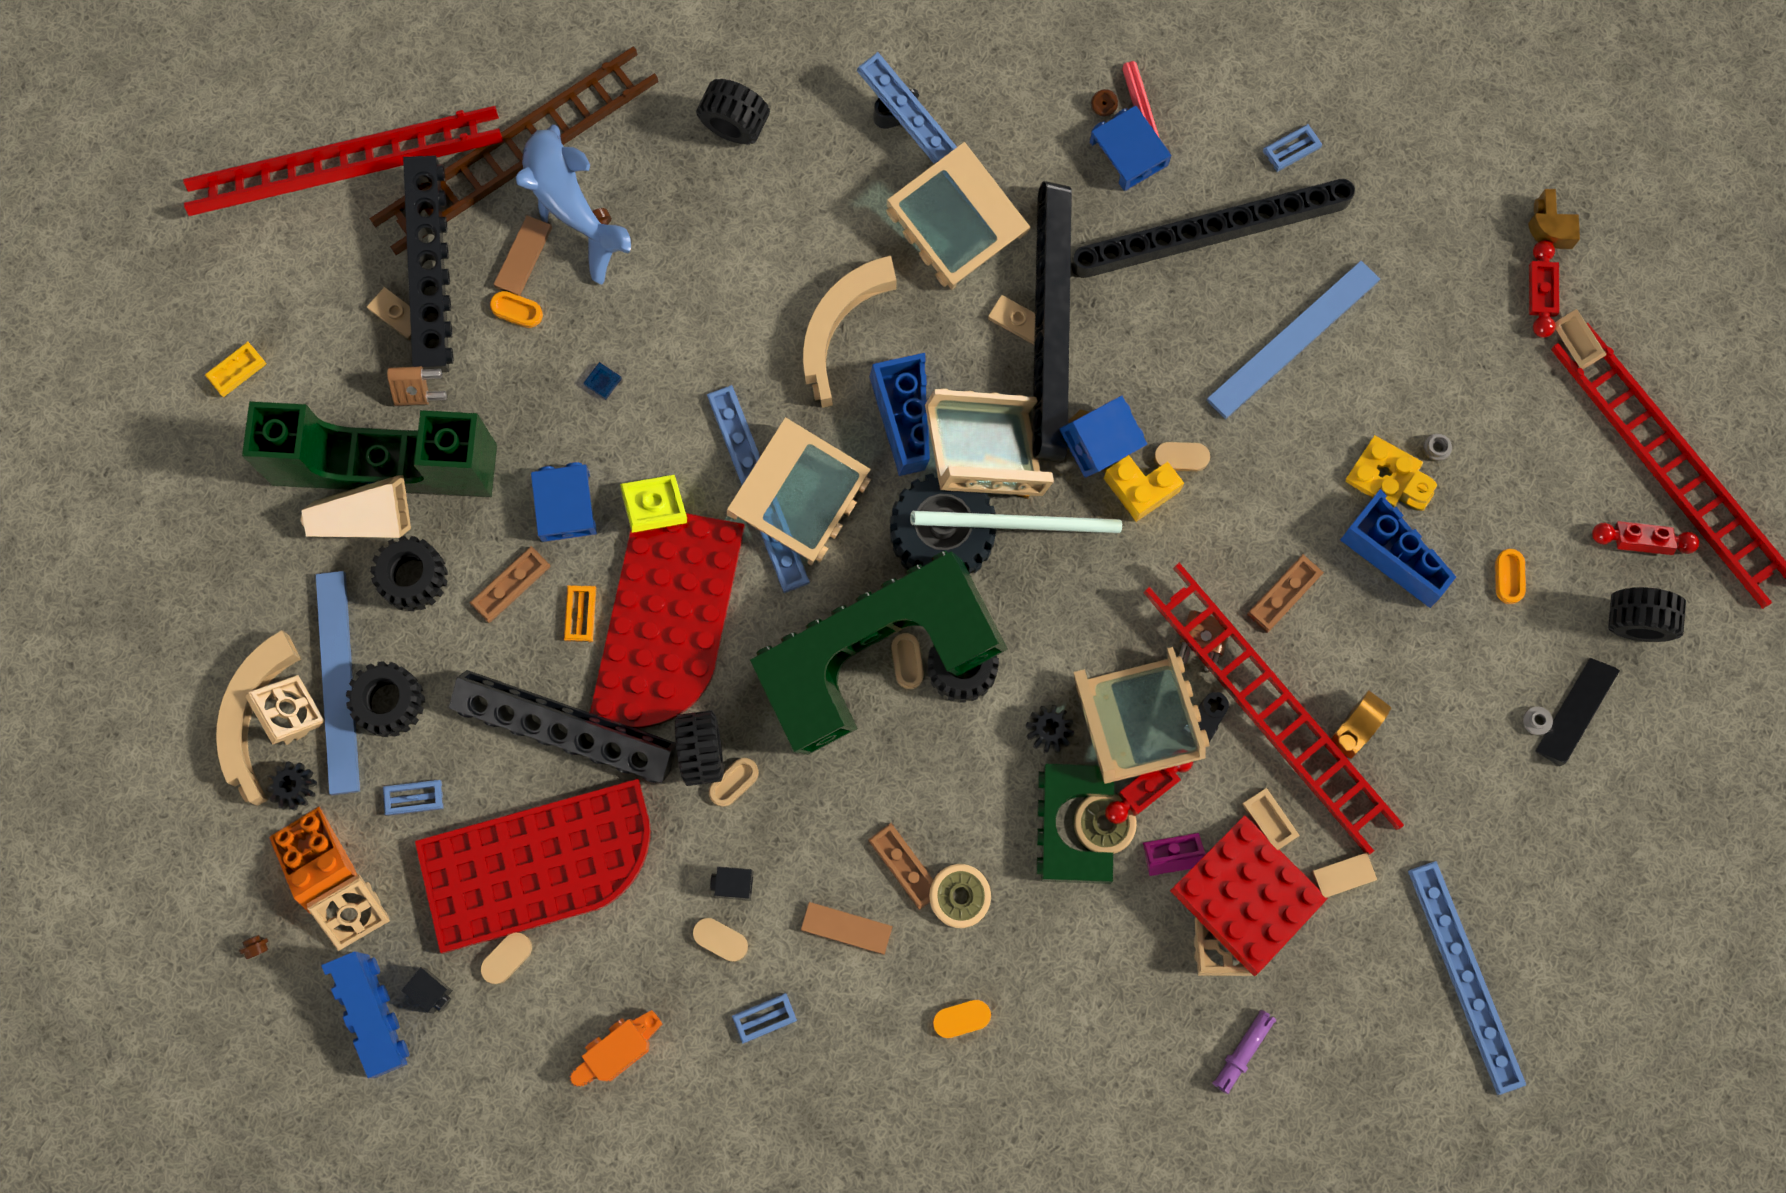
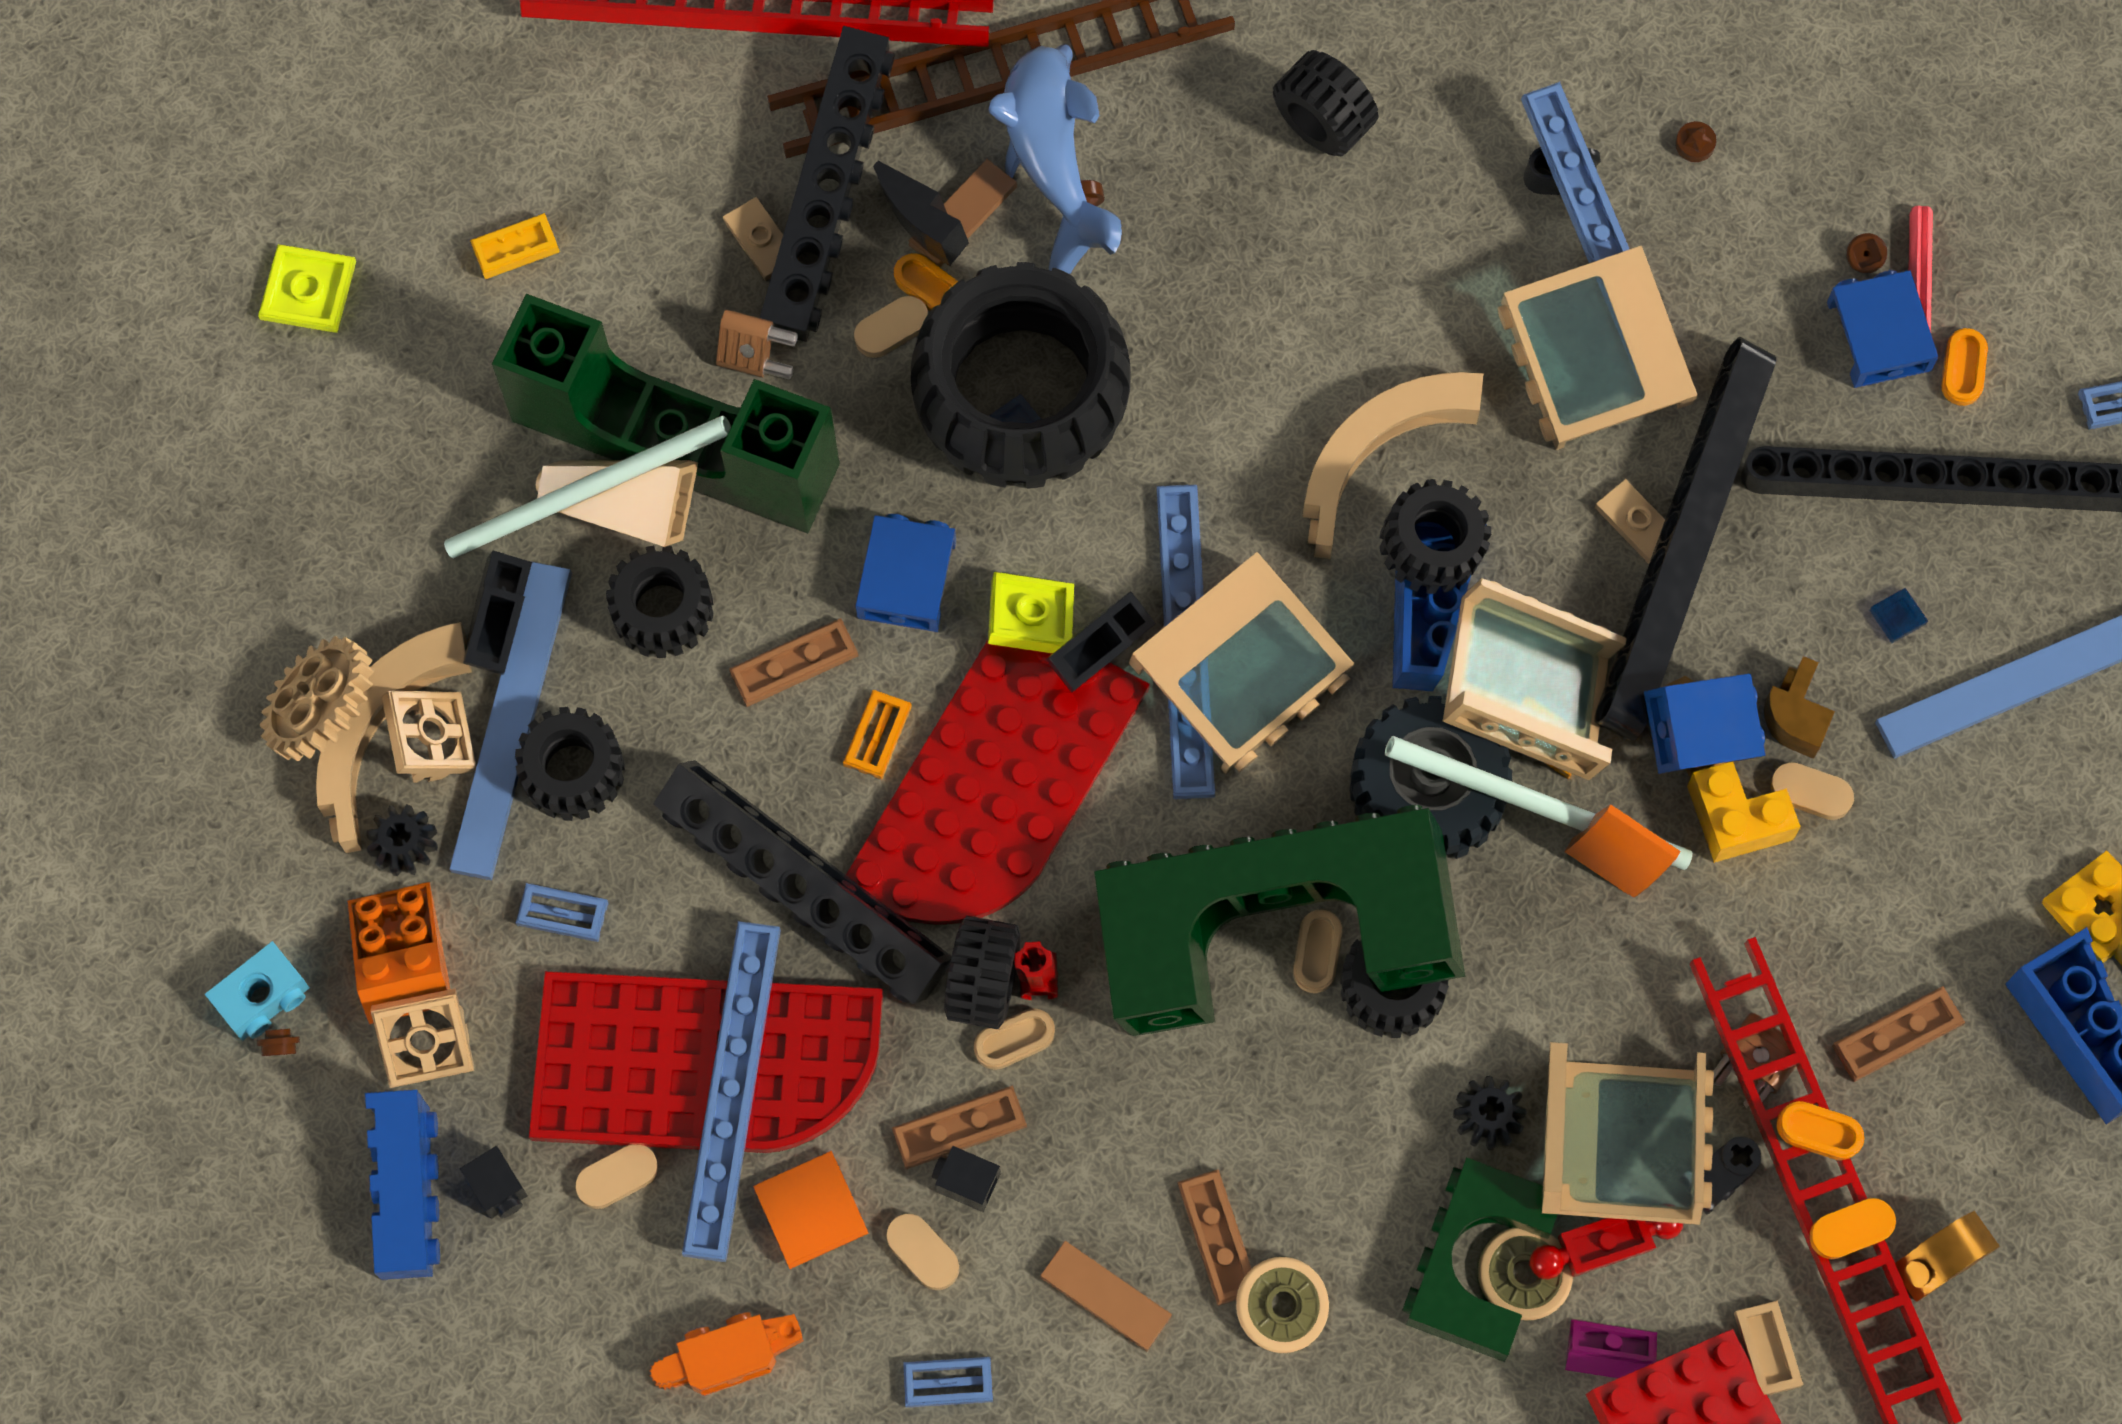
camera: 20 degrees right, 5 degrees down
(106, 440) = (307, 288): none -> neon yellow tile
(202, 712) = (316, 698): none -> tan gear
(214, 927) = (264, 969): none -> medium azure brick
(304, 615) = (496, 612): none -> black slope
(336, 514) = (588, 486): none -> light aqua piece
(496, 264) = (922, 214): none -> black slope
(500, 344) = (890, 326): none -> tan tile
(562, 879) = (731, 1092): none -> medium blue tile
(585, 300) = (1010, 302): none -> black tyre
(639, 937) = (810, 1209): none -> orange slope
(704, 507) = (1100, 641): none -> black slope
(717, 851) = (959, 1127): none -> medium nougat tile
(734, 734) = (1037, 971): none -> red piece
(900, 351) = (1452, 511): none -> black tyre
(974, 64) = (1695, 141): none -> reddish brown tile
(1078, 535) = (1622, 851): none -> orange slope
(1155, 414) = (1792, 718): none -> pearl gold brick
(1188, 156) = (1964, 366): none -> light orange tile
(1198, 327) = (1898, 615): none -> clear blue tile
(1259, 672) = (1820, 1130): none -> light orange tile
(1299, 728) = (1852, 1228): none -> light orange tile

